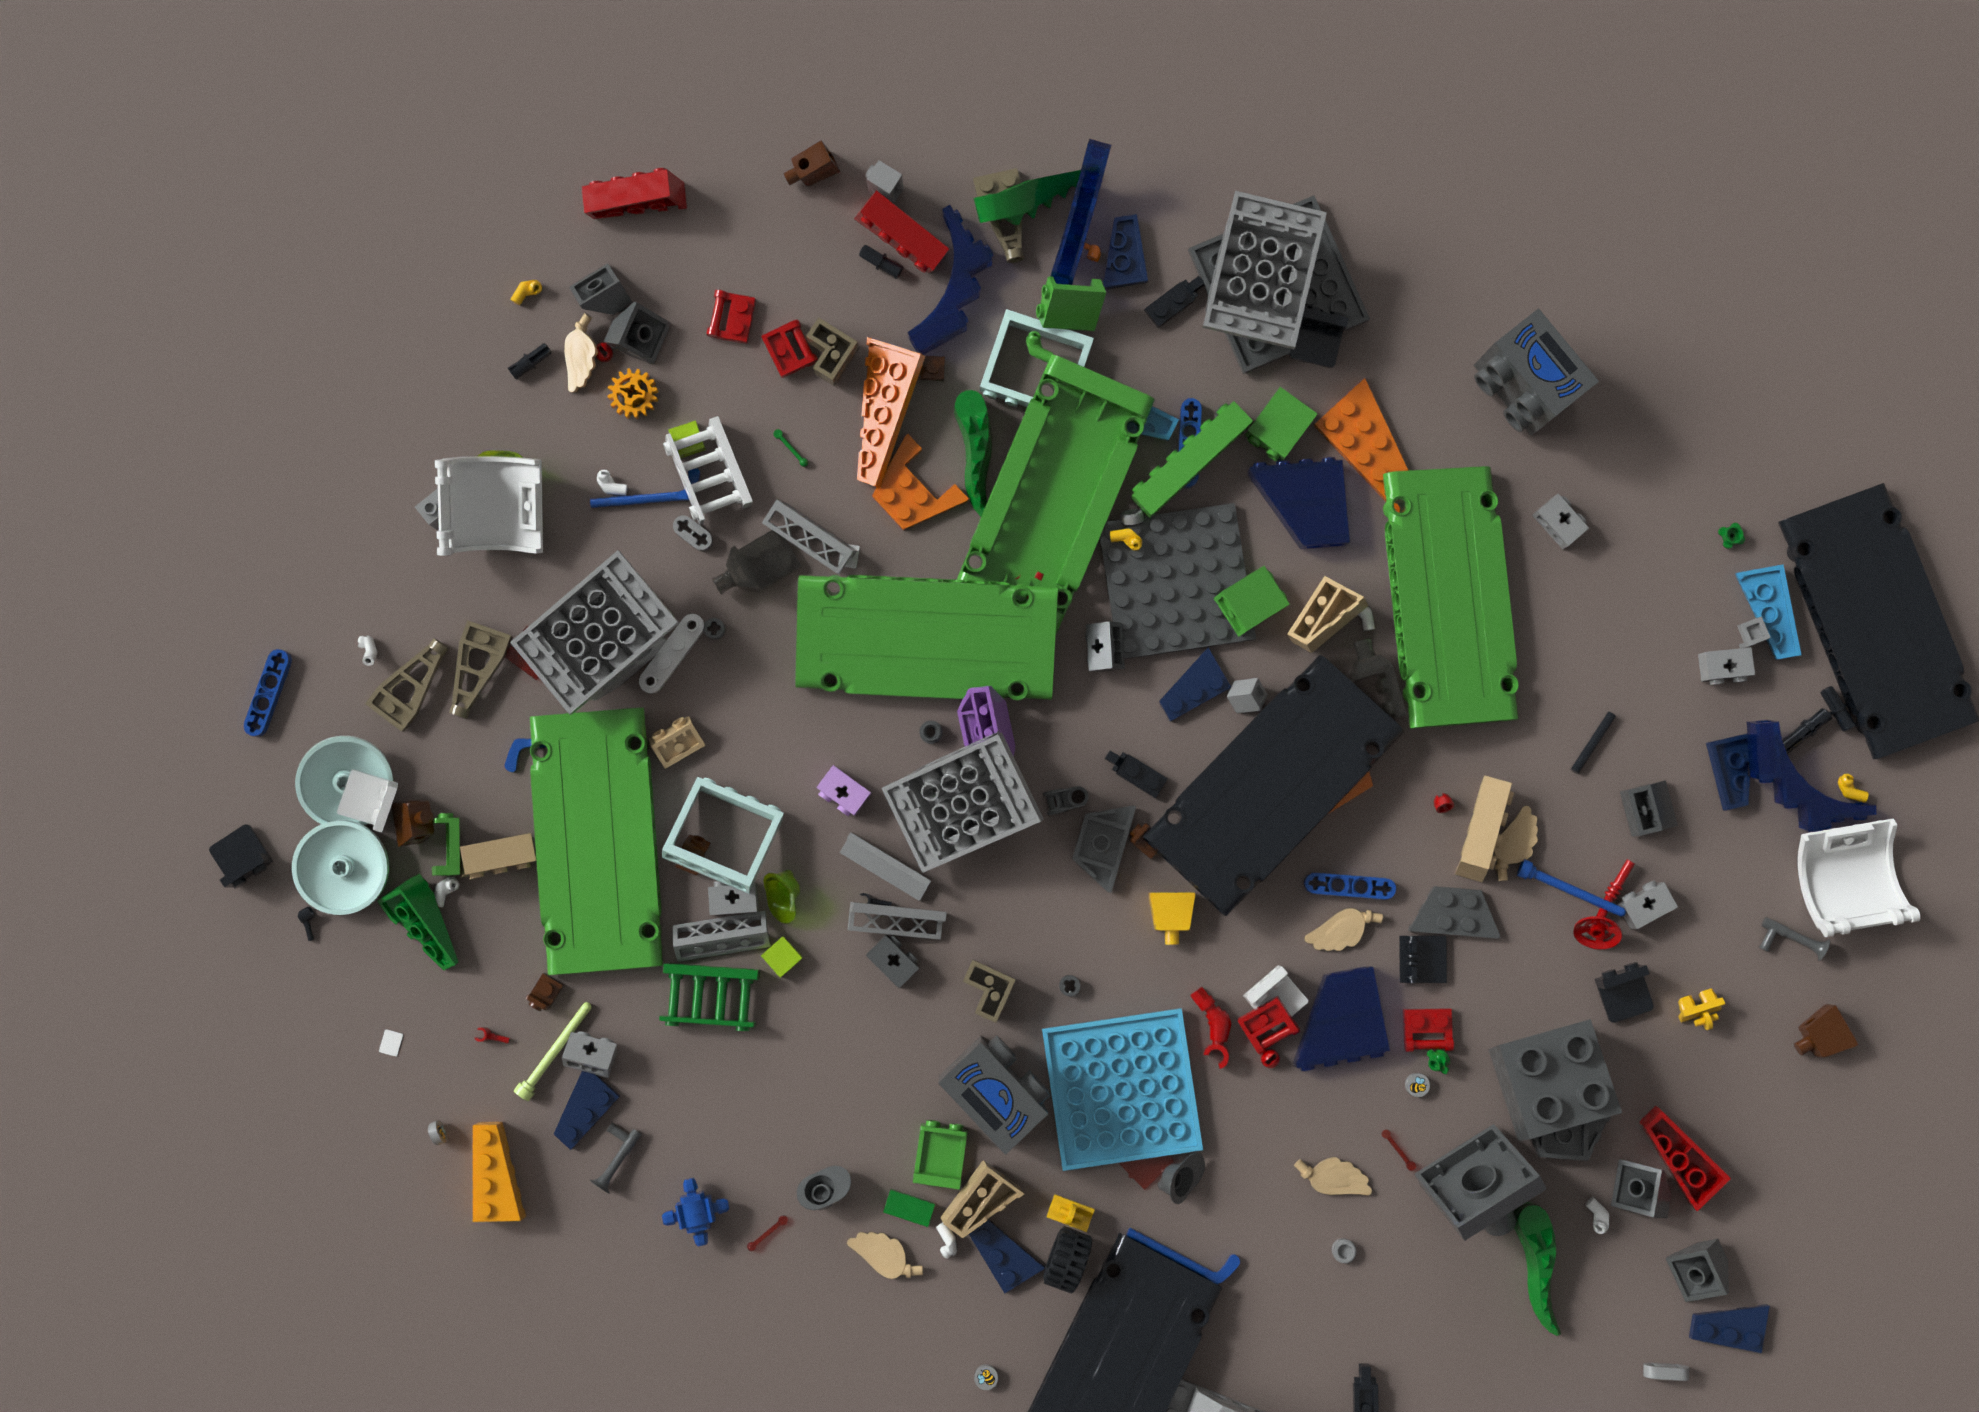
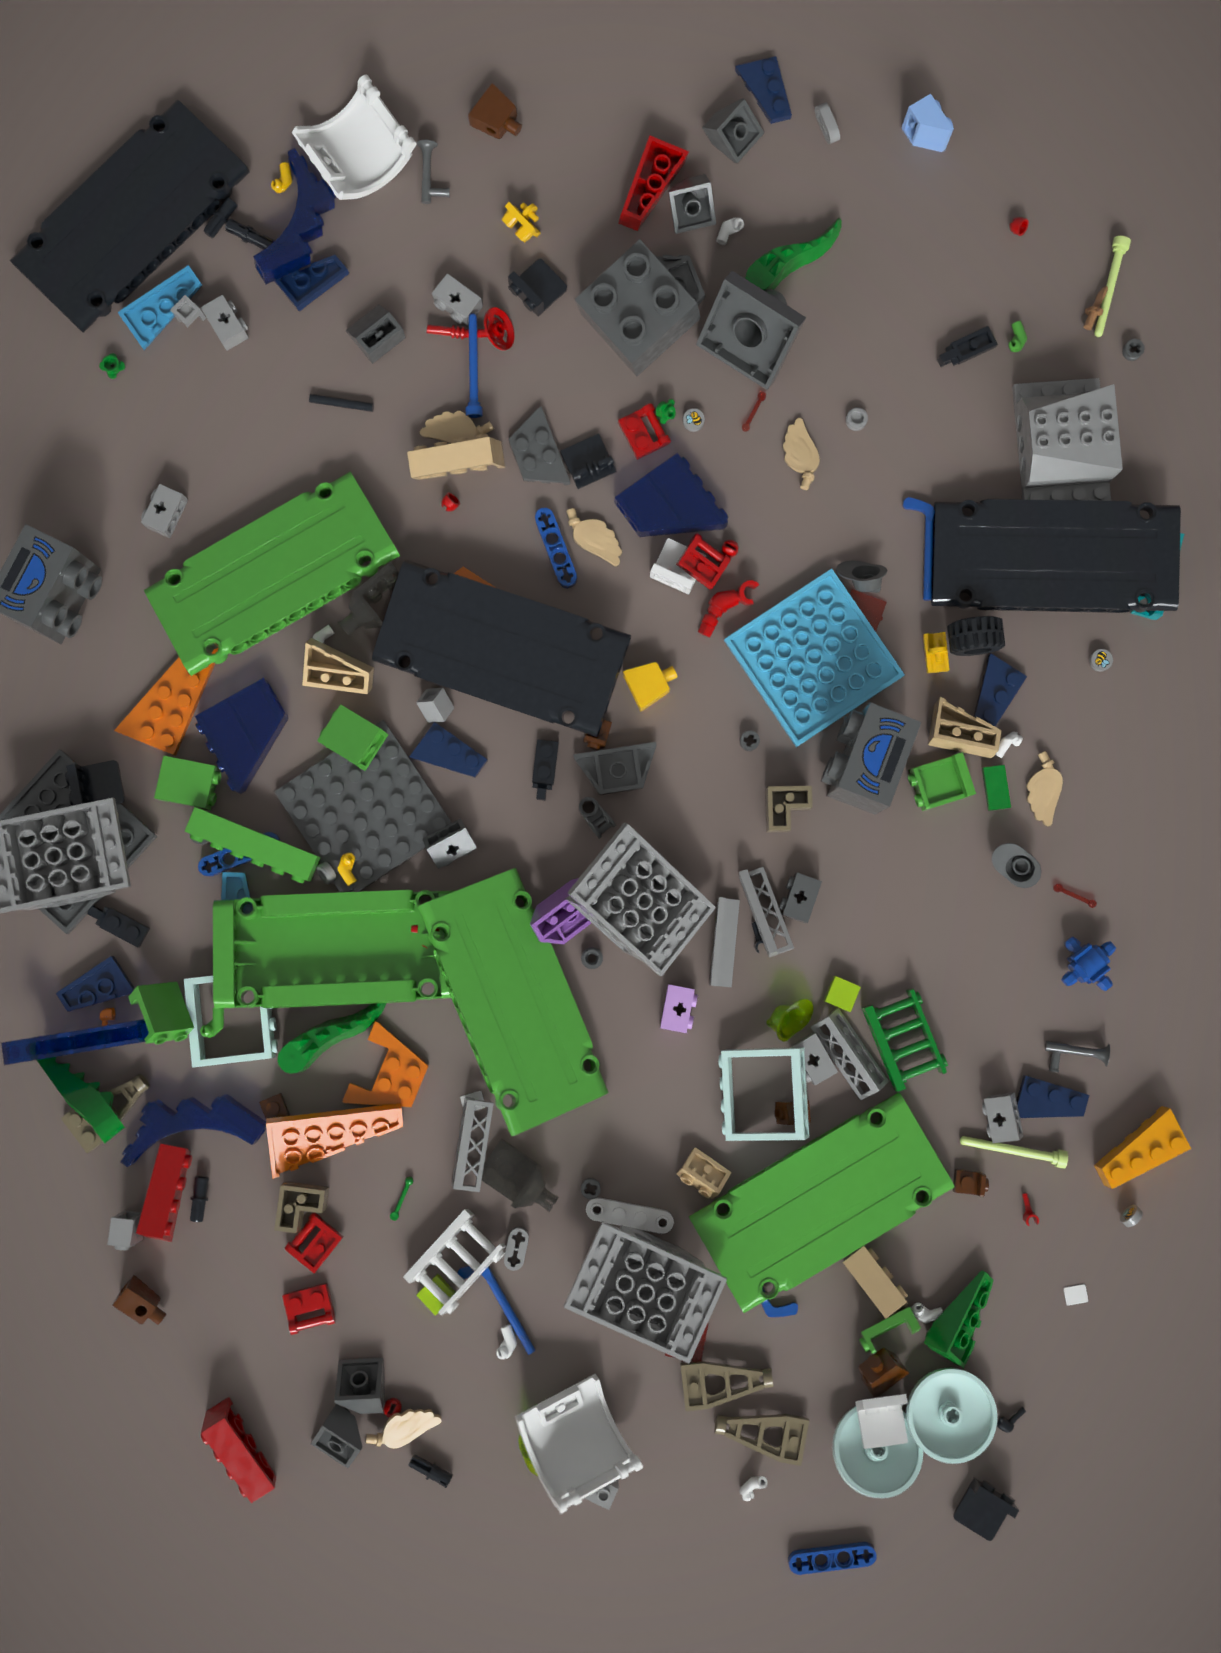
camera: 110 degrees left, 0 degrees up
(526, 288) = (367, 1507): yellow arm -> none
(624, 390) = (426, 1359): light orange gear -> none

